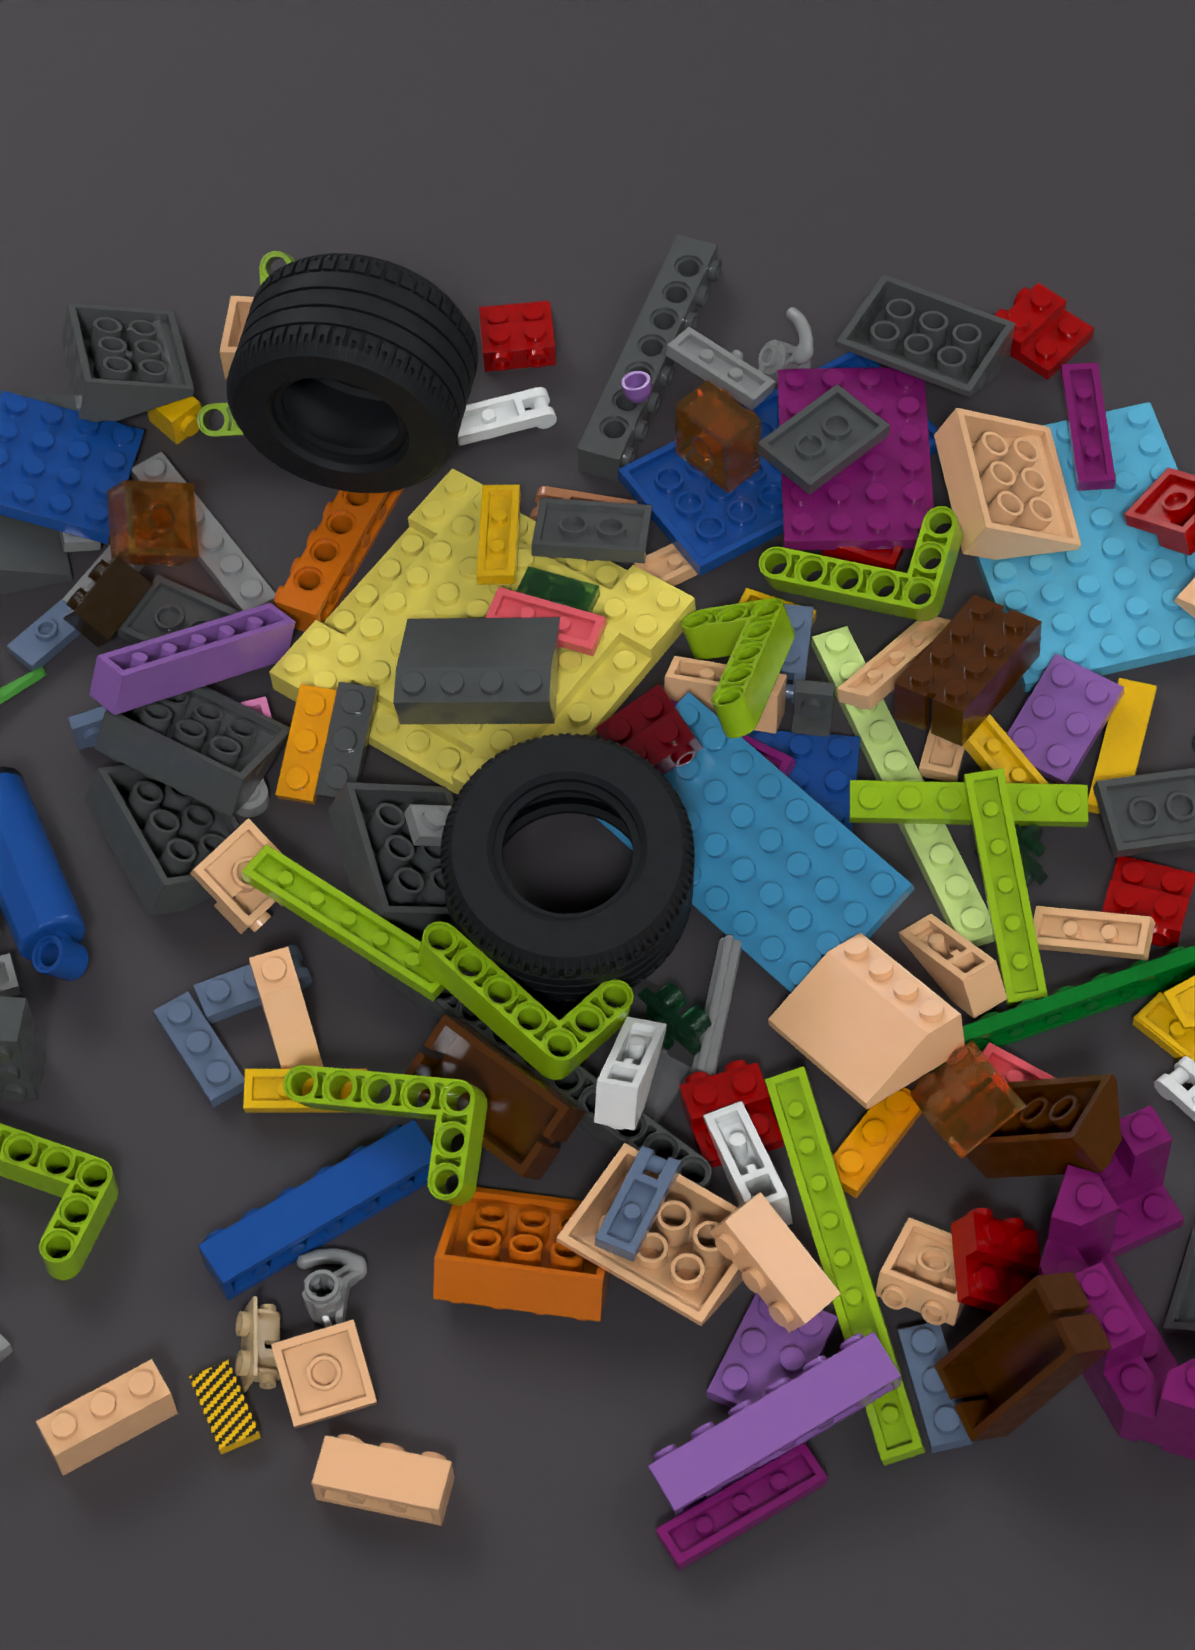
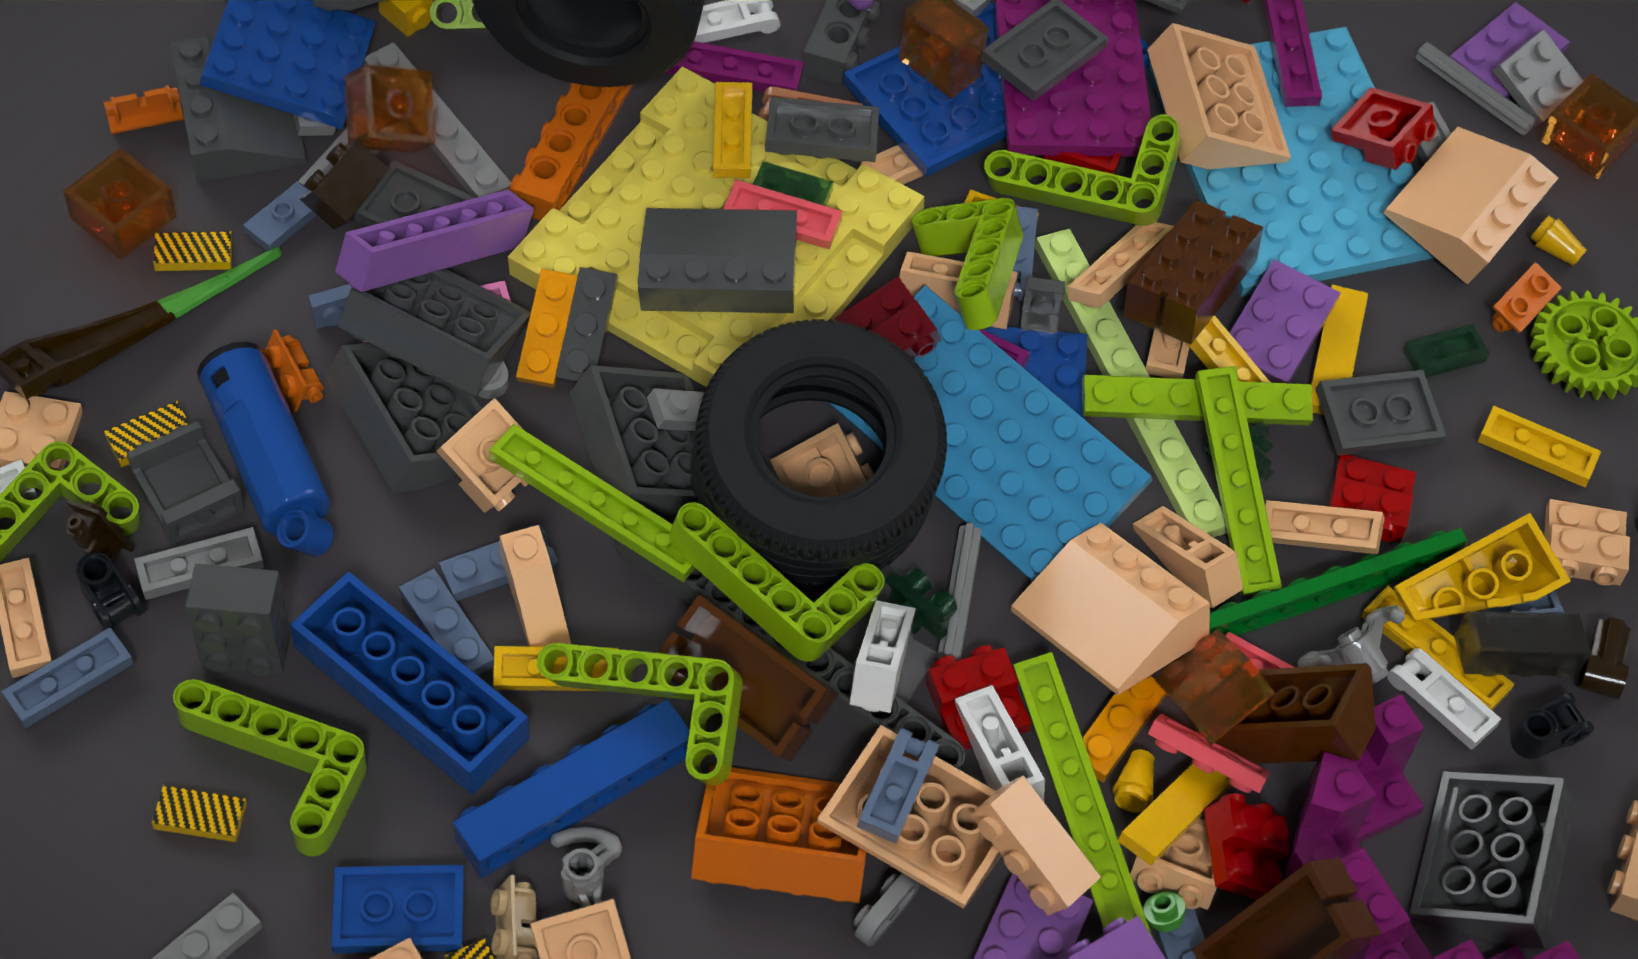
camera: 10 degrees left, 0 degrees up
(46, 781) = (285, 359): none -> orange hinge
(138, 1325) = (393, 903): none -> blue plate
(161, 1106) = (410, 682): none -> blue brick
(511, 466) = (736, 65): none -> magenta plate
(579, 878) = (824, 464): none -> light nougat plate
(617, 1338) = (875, 920): none -> light grey plate
(887, 1197) = (1136, 782): none -> yellow cone
(908, 1327) = (1165, 911): none -> bright green plate
(927, 1221) = (1173, 813): none -> yellow tile
(928, 1151) = (1176, 737): none -> coral plate
(1124, 1058) = (1359, 645): none -> light grey piece

